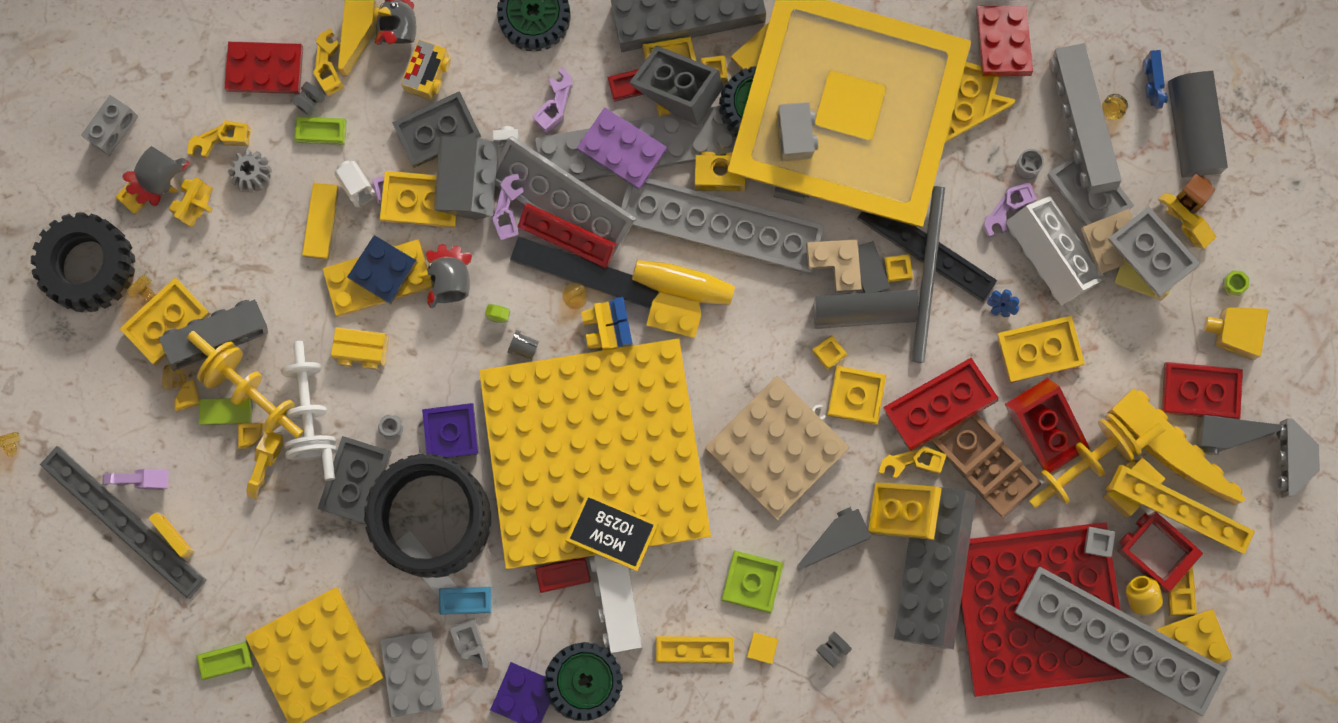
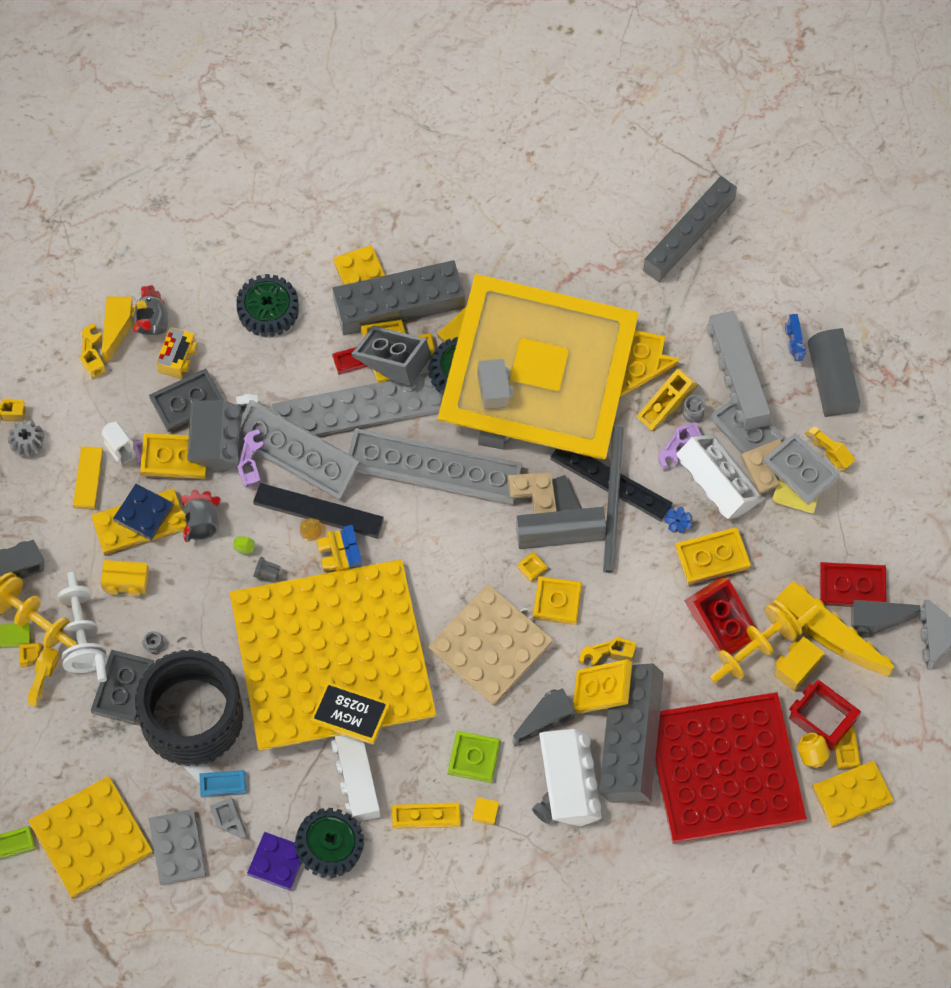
camera: 10 degrees left, 15 degrees down
(263, 67) = (36, 357): red plate -> none
(304, 103) = (75, 379): dark grey wheel -> none
(320, 130) = (86, 405): lime tile -> none
(451, 430) = (207, 637): dark purple plate -> none
(561, 92) = (292, 365): lavender piece -> none
(562, 575) = (307, 758): red tile -> none
(566, 235) = (301, 479): red tile -> none
(621, 148) = (346, 407): medium lavender plate -> none
(679, 295) = (401, 522): yellow plate -> none
(708, 181) = (423, 432): yellow brick -> none
(862, 617) = (570, 777): none -> white slope
(898, 268) = (587, 496): yellow tile -> none
(940, 404) = (629, 602): red plate -> none
(987, 464) = (671, 649): medium nougat slope -> none
(999, 151) = (667, 399): none -> yellow slope
(1004, 41) = (667, 313): plate -> none
(1099, 542) = (771, 706): light grey plate -> none
(1114, 106) = (763, 361): clear yellow tile -> none
(1120, 641) = (794, 786): light grey plate -> none
(1181, 509) = (840, 676): yellow plate -> none
(1195, 193) = (835, 425): dark orange slope -> none
(1236, 283) = (875, 496): lime tile -> none
(1239, 330) = (880, 533): yellow torso -> none

